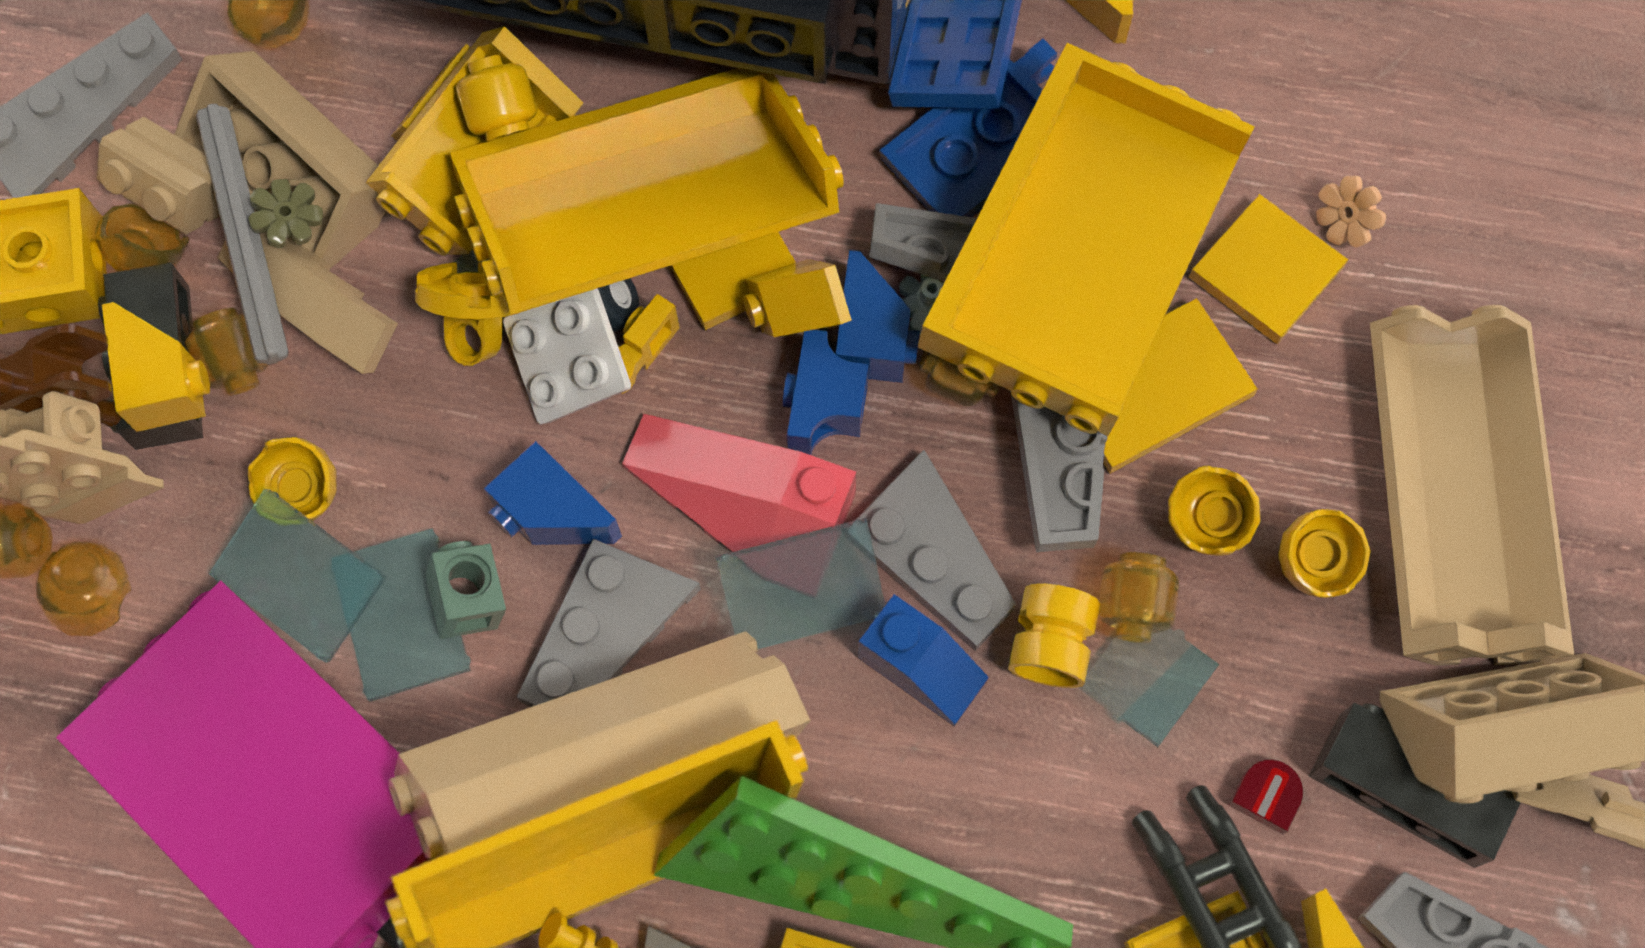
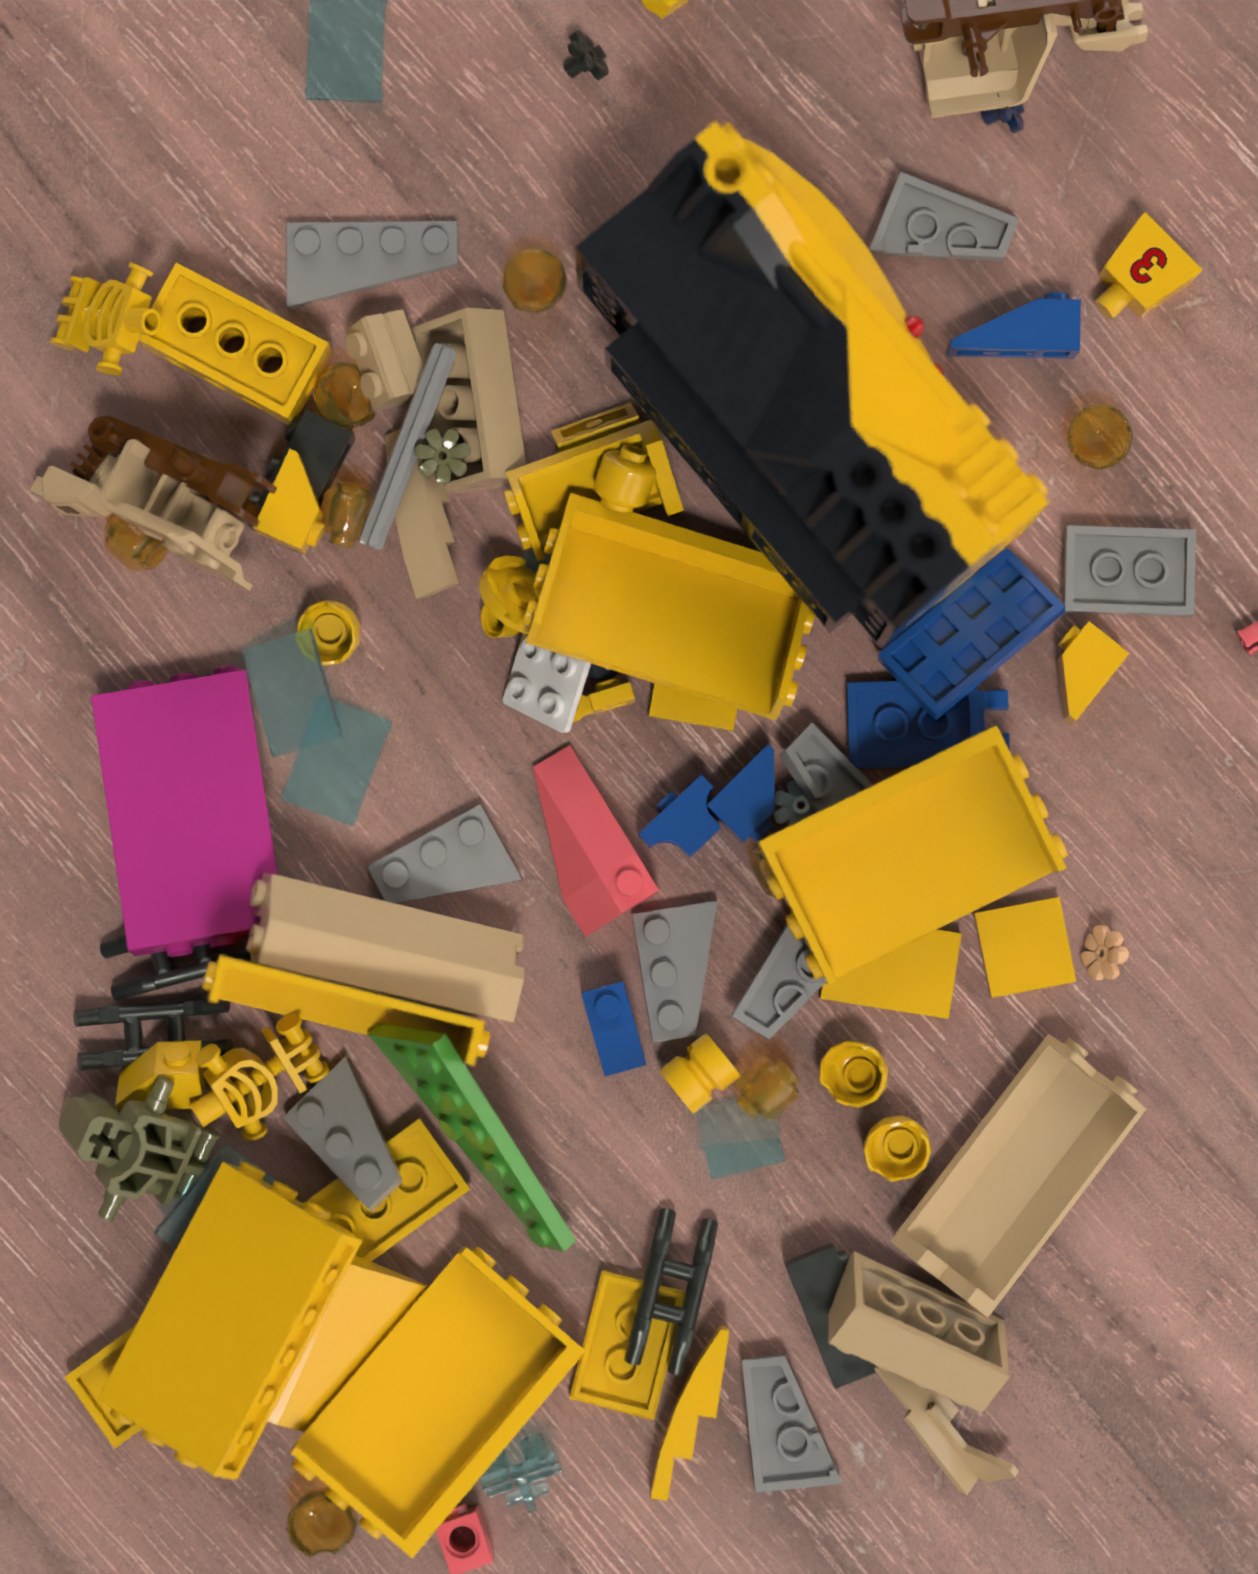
camera: 35 degrees right, 15 degrees up
(82, 588) = (163, 602): clear yellow hair -> none
(461, 613) = (364, 786): sand green brick -> none
(547, 503) = (468, 761): blue slope -> none
(796, 299) = (710, 750): yellow slope -> none
(802, 584) = (578, 930): clear light blue piece -> none
(1269, 794) = (750, 1254): dark red tile -> none

